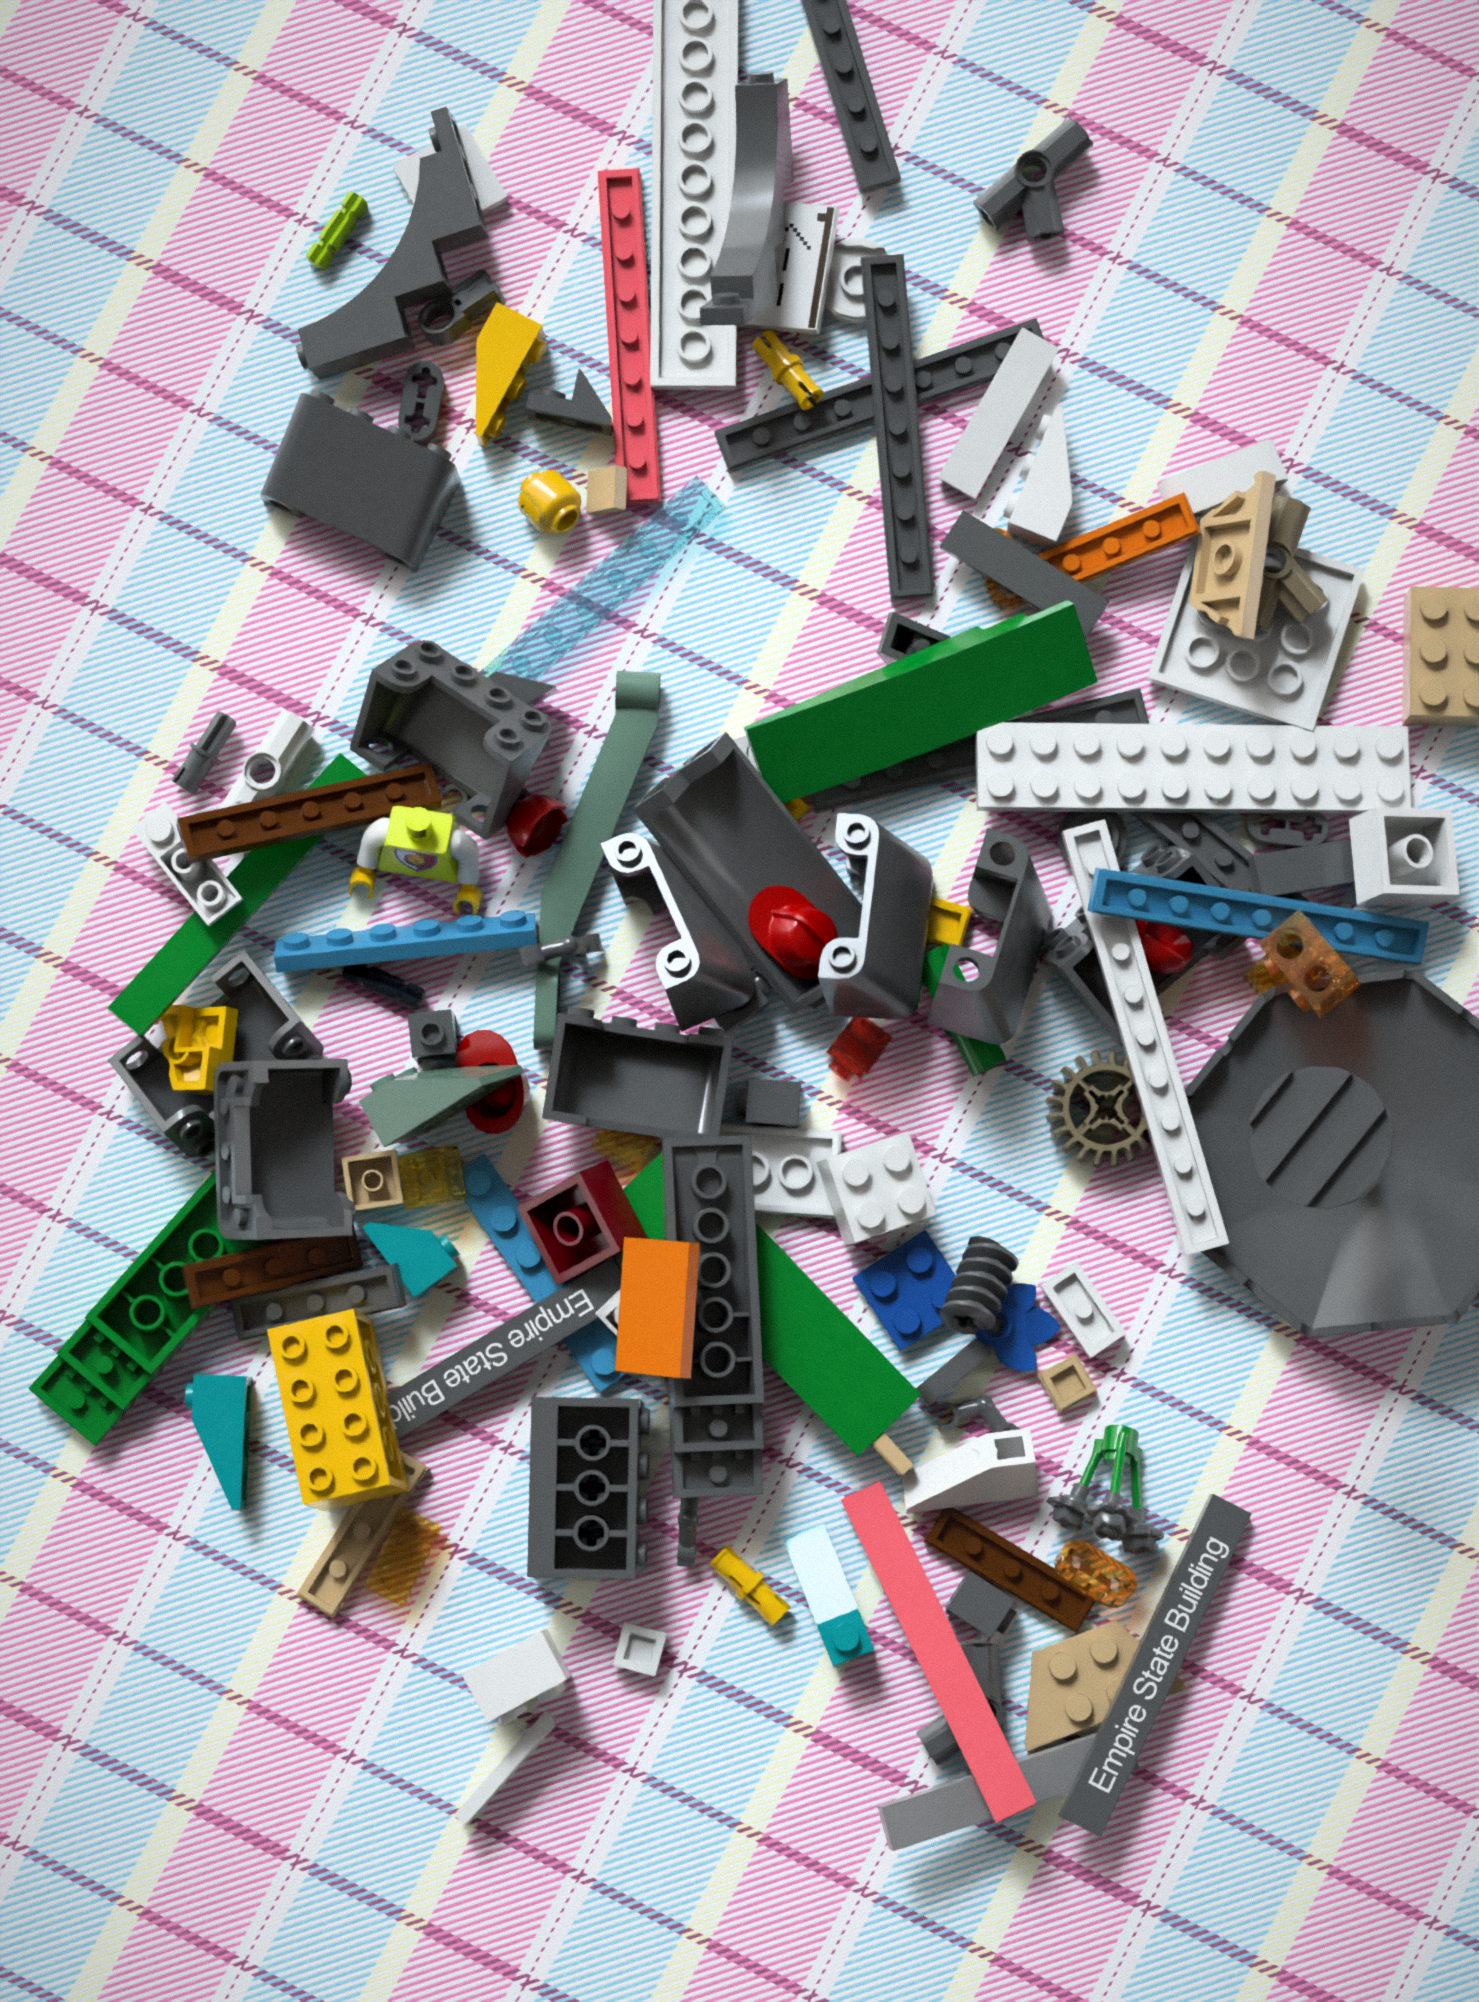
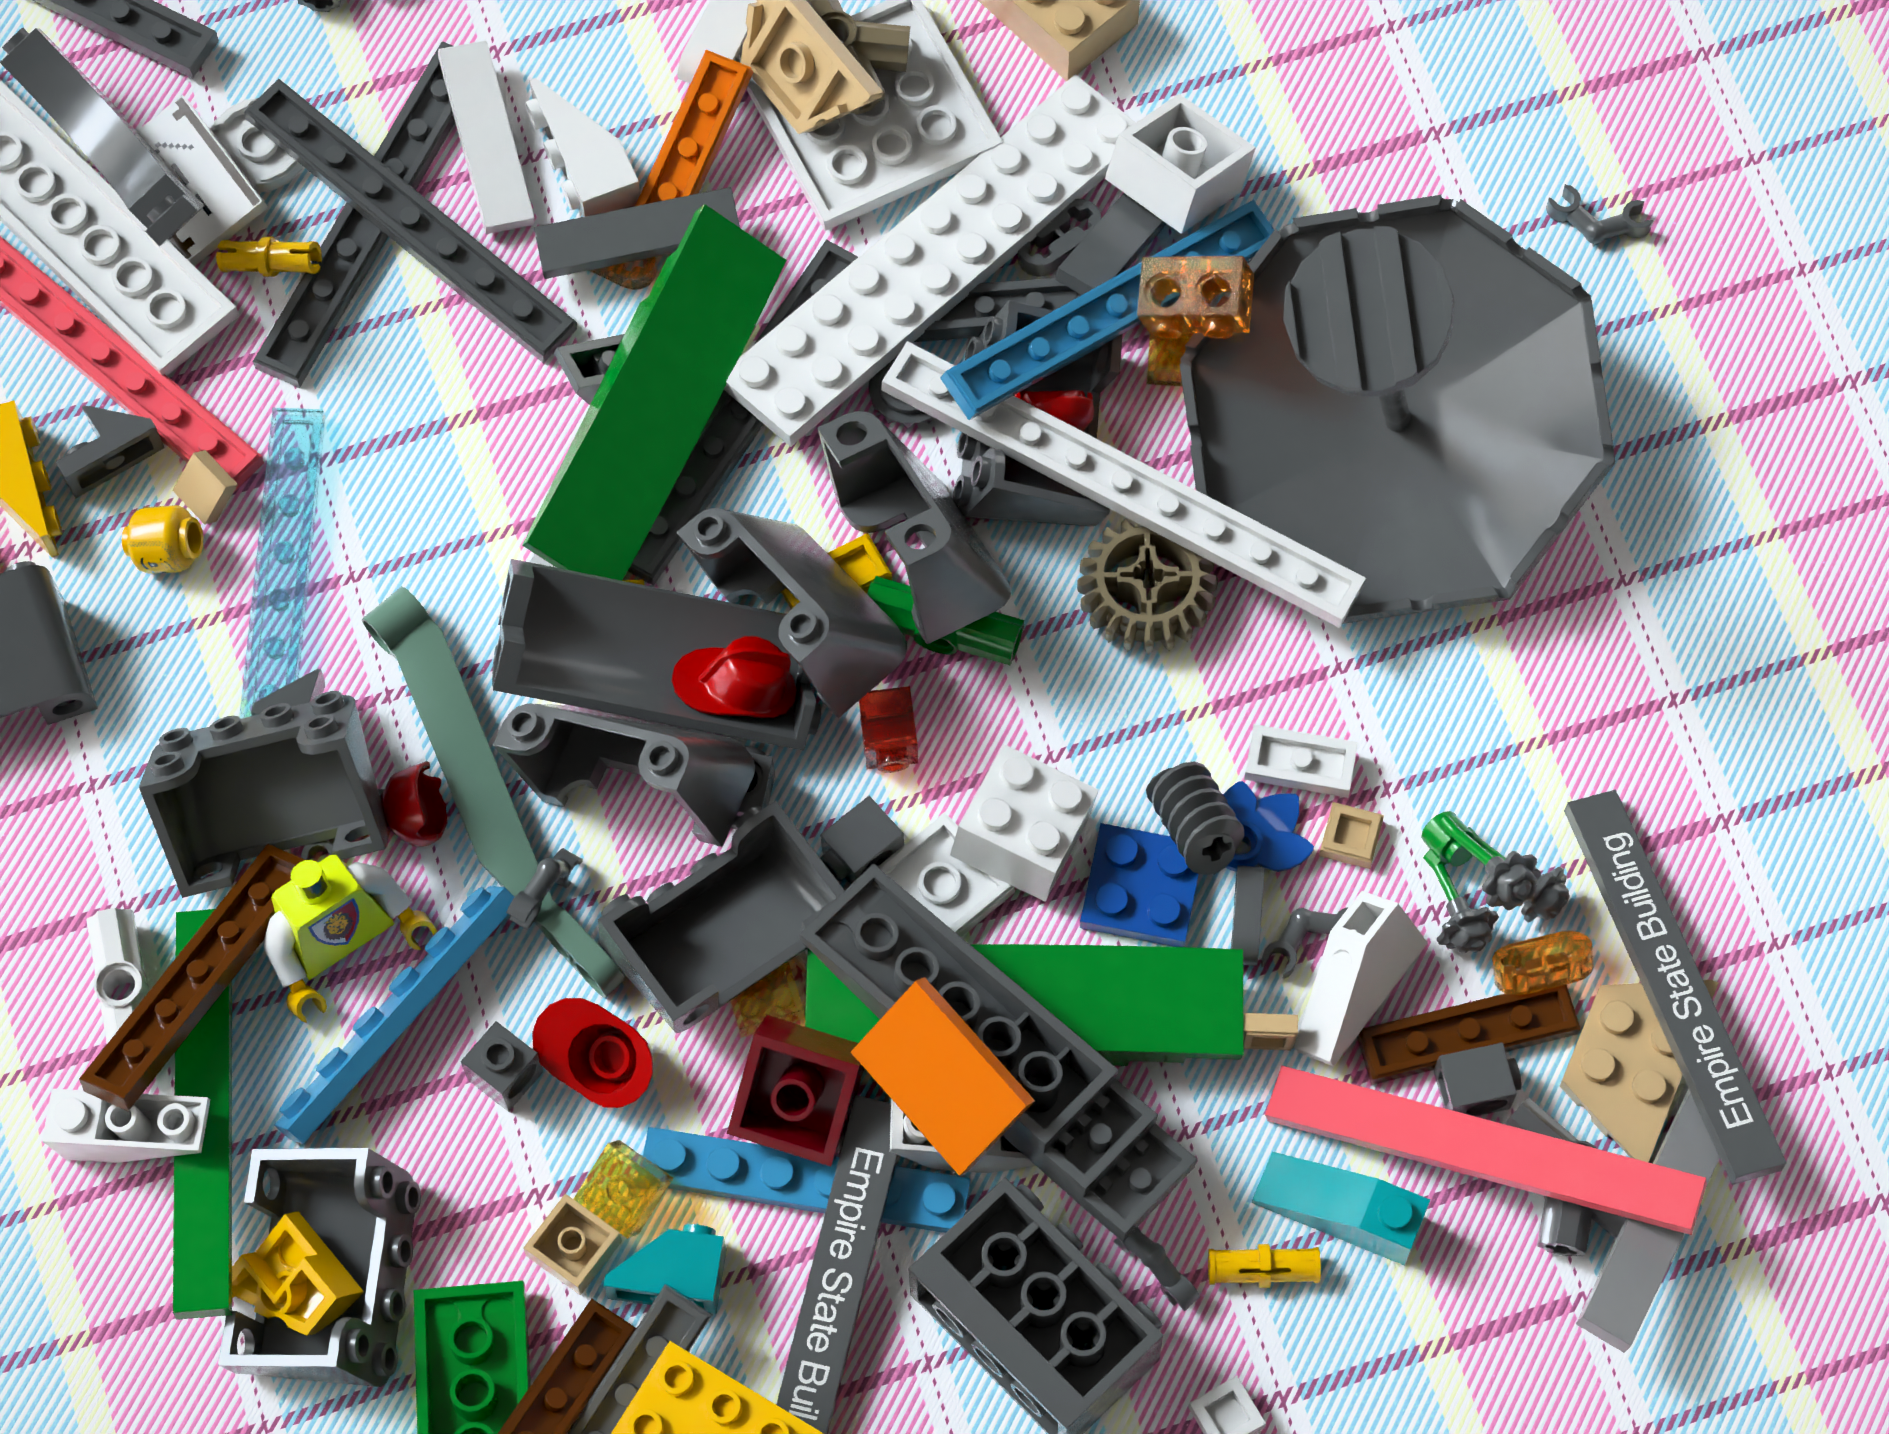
camera: 50 degrees left, 15 degrees down
(204, 753) = (49, 1027): dark grey axle -> none
(279, 1149) = (453, 1286): dark grey windscreen -> none
(384, 984) = (411, 1070): black axle -> none
(423, 1100) = (550, 1120): sand green slope -> none

